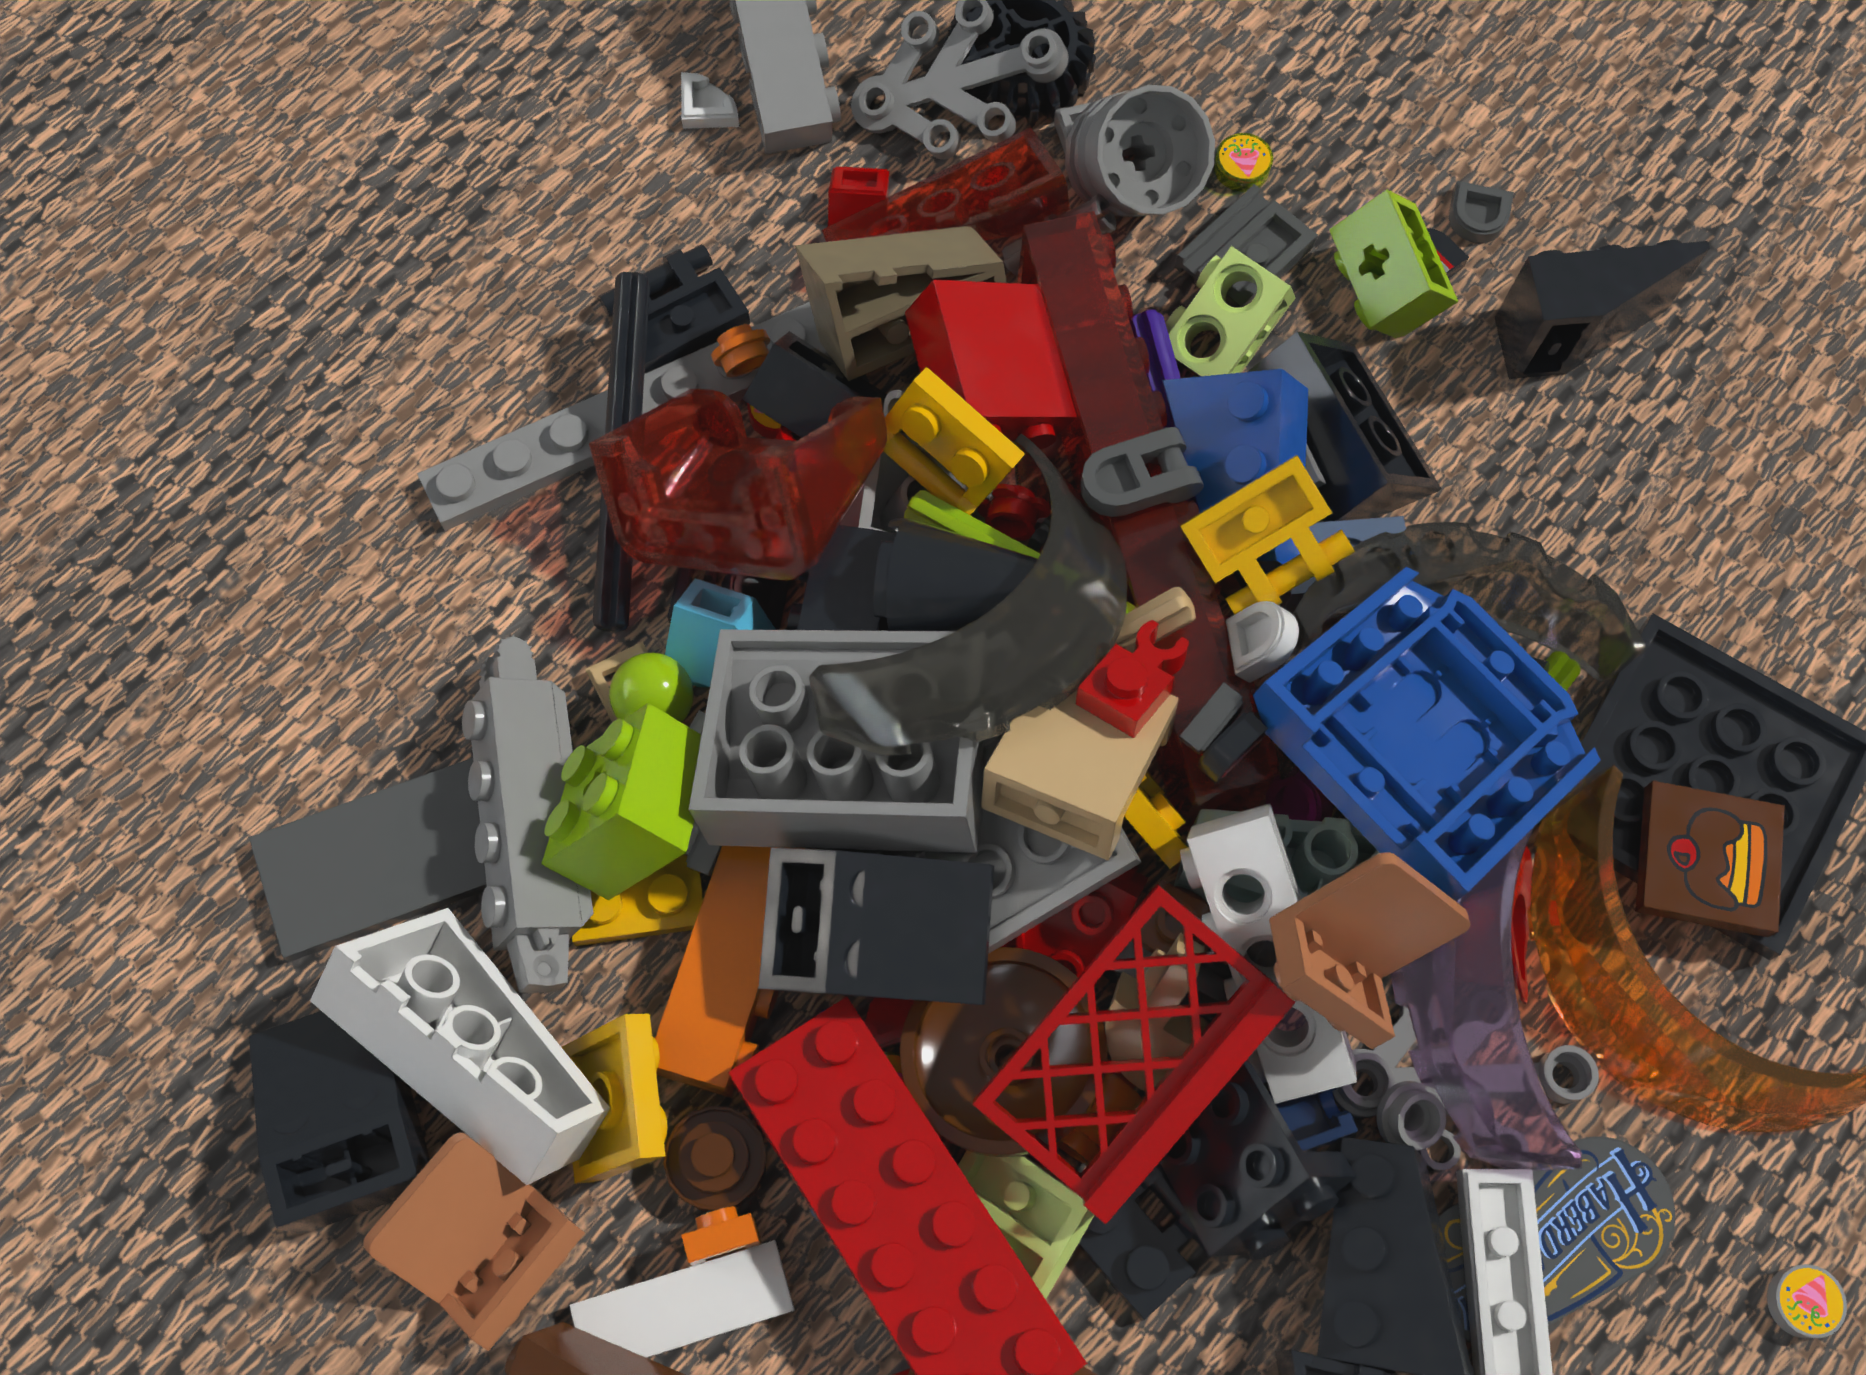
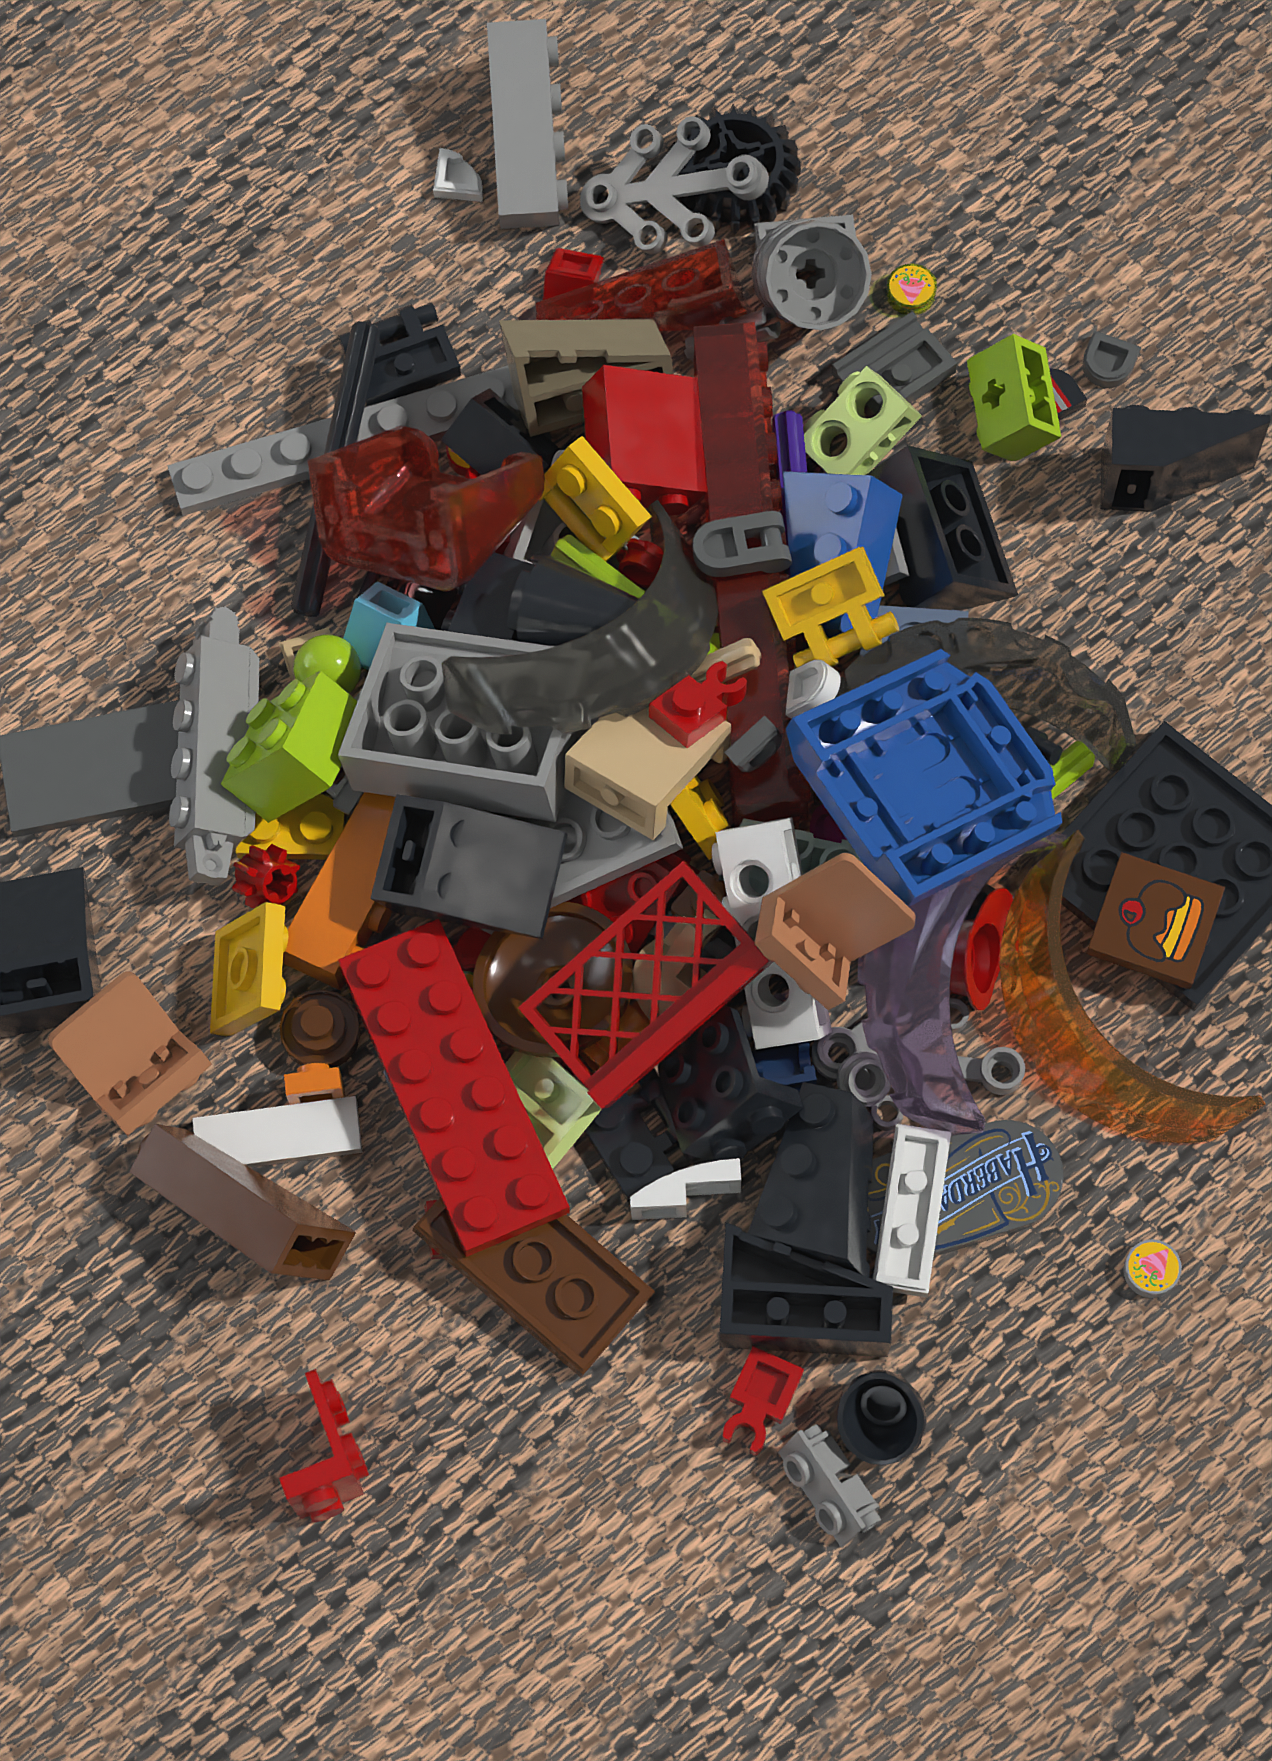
camera: 15 degrees right, 0 degrees up
(463, 1041) = (141, 907): white wedge -> none
(615, 970) = (265, 876): none -> red gear
(741, 350) = (446, 399): orange plate -> none
(1204, 1306) = (668, 1194): none -> white slope
(1232, 747) = (767, 769): black tile -> none

